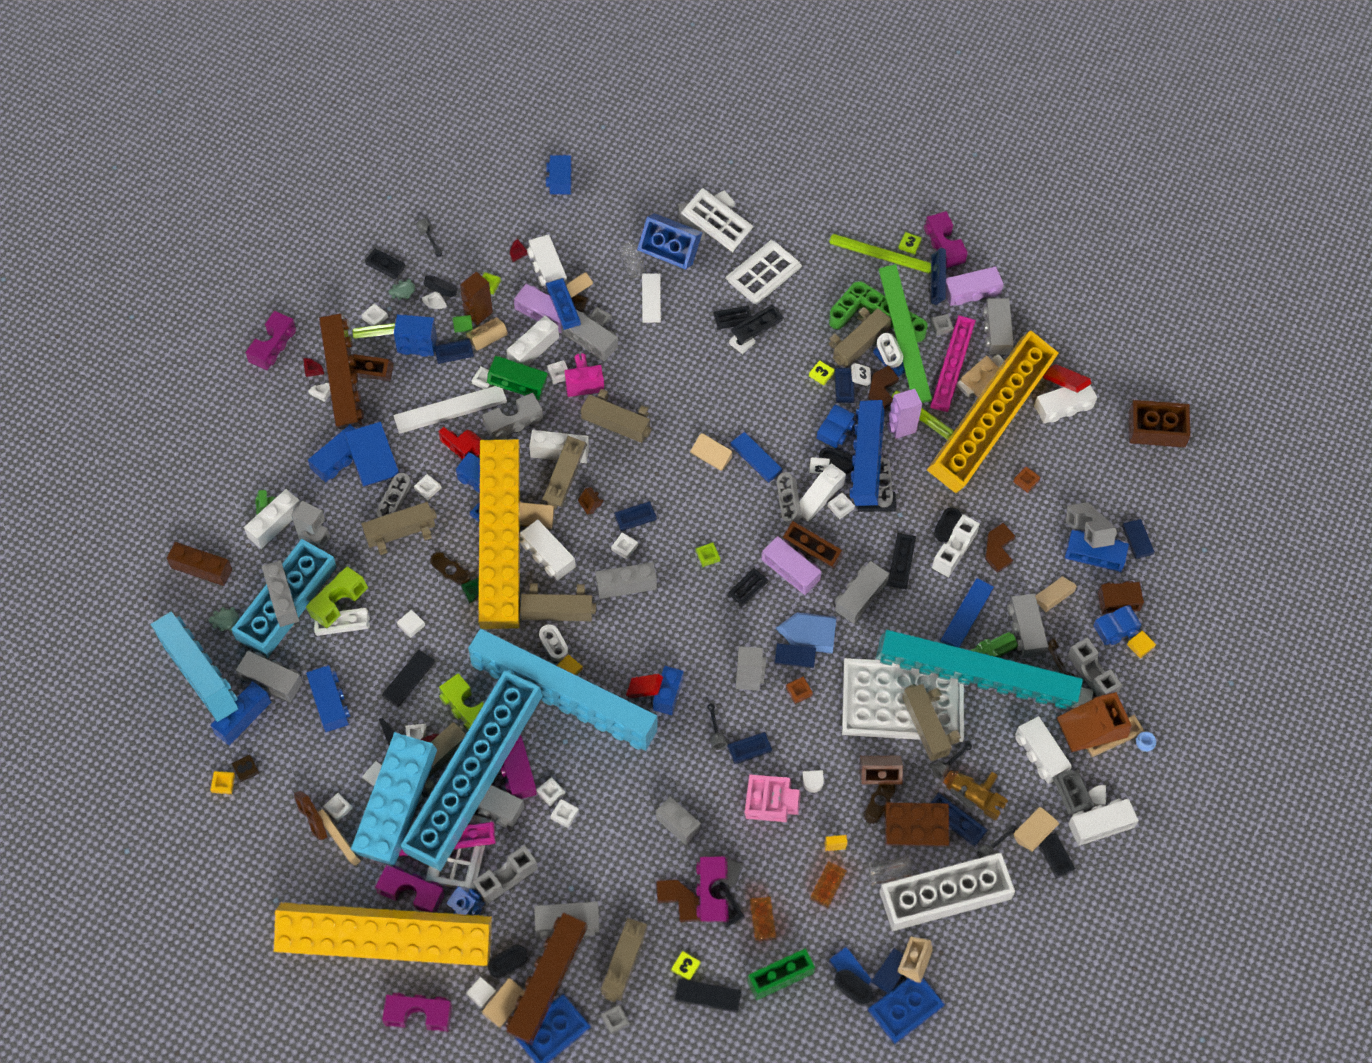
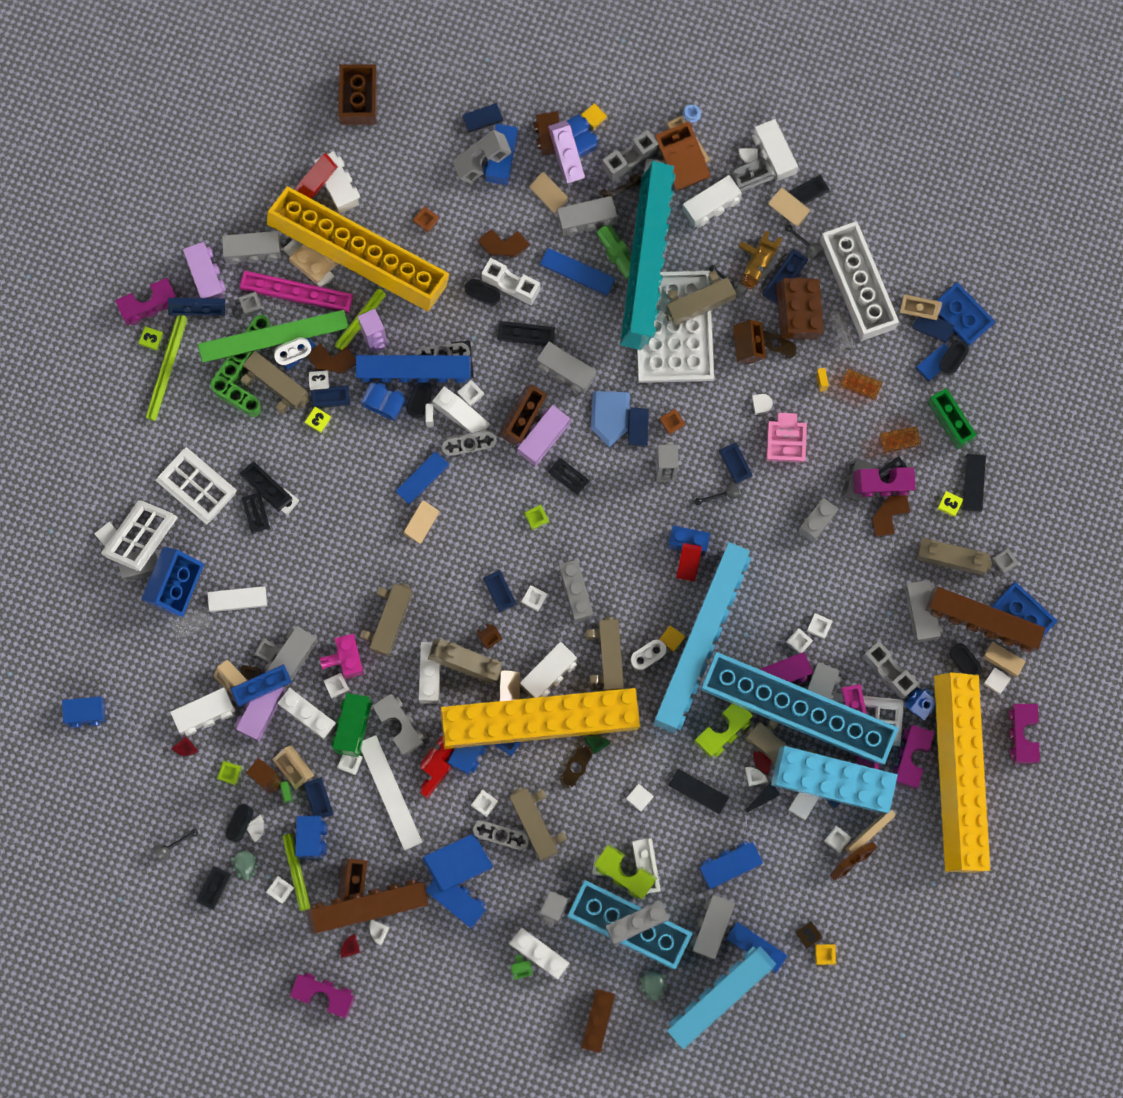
camera: 95 degrees left, 15 degrees up
(1096, 604) = (566, 151): none -> lavender brick

